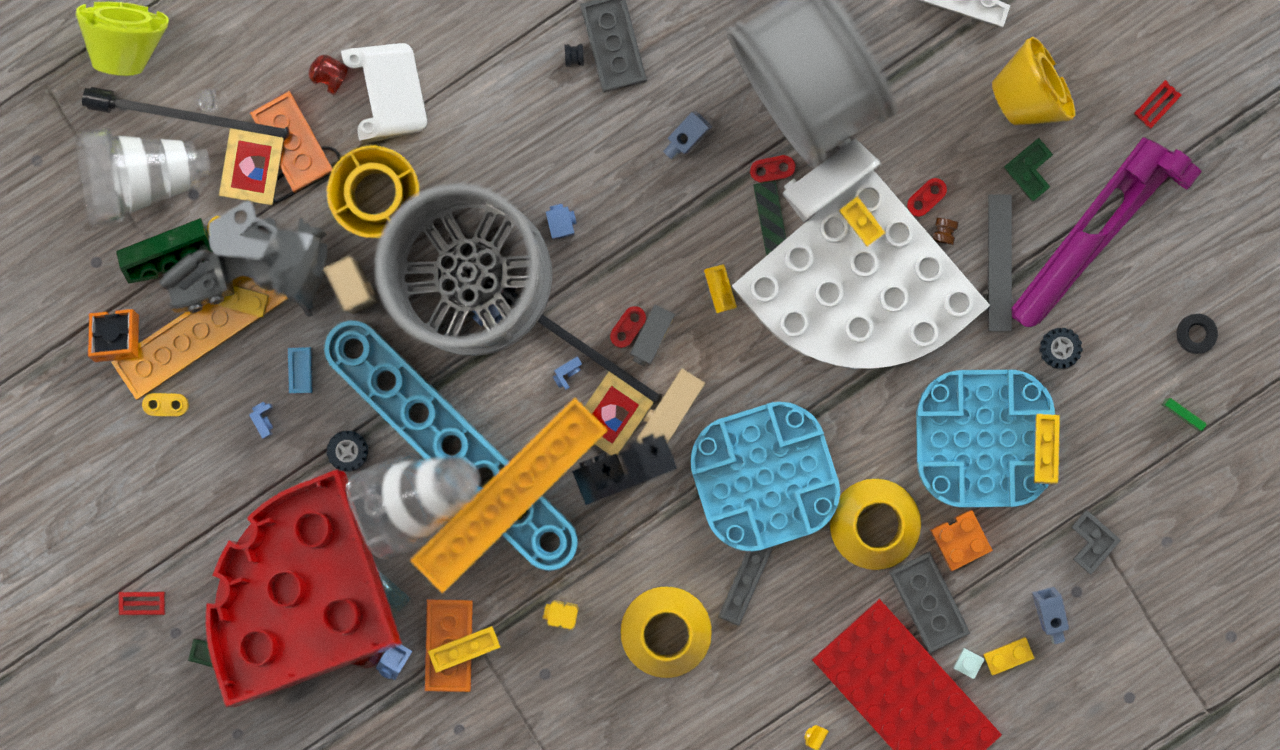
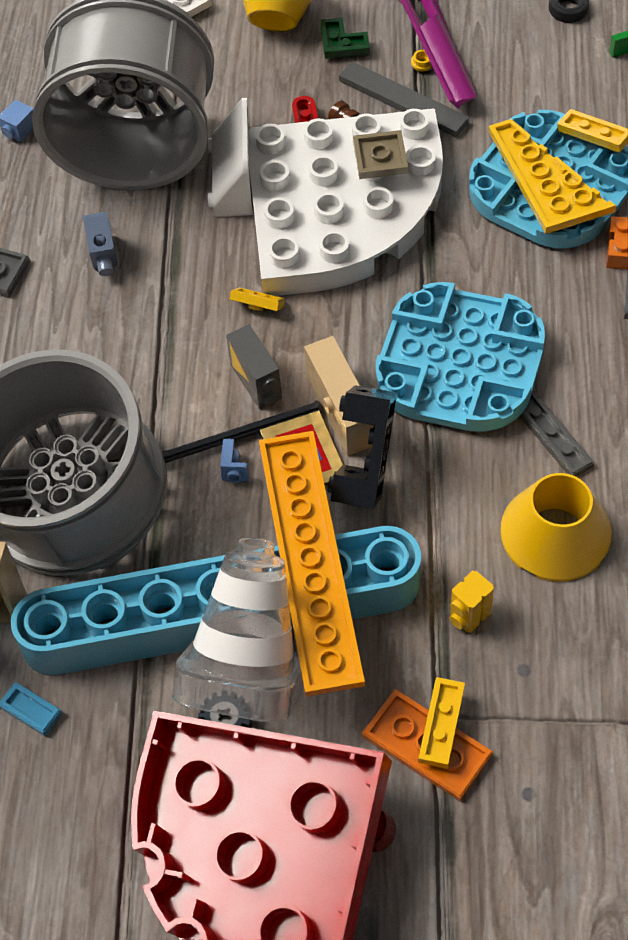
camera: 55 degrees left, 30 degrees down
(262, 424) = (48, 780): medium blue bracket -> none
(341, 445) = (143, 703): black wheel -> none
(393, 662) = (405, 809): medium blue bracket -> none
(628, 327) = (232, 392): red plate -> none
(769, 215) = (224, 233): tile -> none
(772, 169) = (183, 210): red plate -> none
(844, 520) = (572, 314): yellow cone -> none
(862, 221) = (285, 143): yellow plate -> none
(898, 304) = (380, 154): none -> dark tan plate
(963, 451) = (548, 184): none -> yellow wing
(1042, 251) = (420, 61): none -> yellow plate
(1068, 345) = (510, 92): black wheel -> none

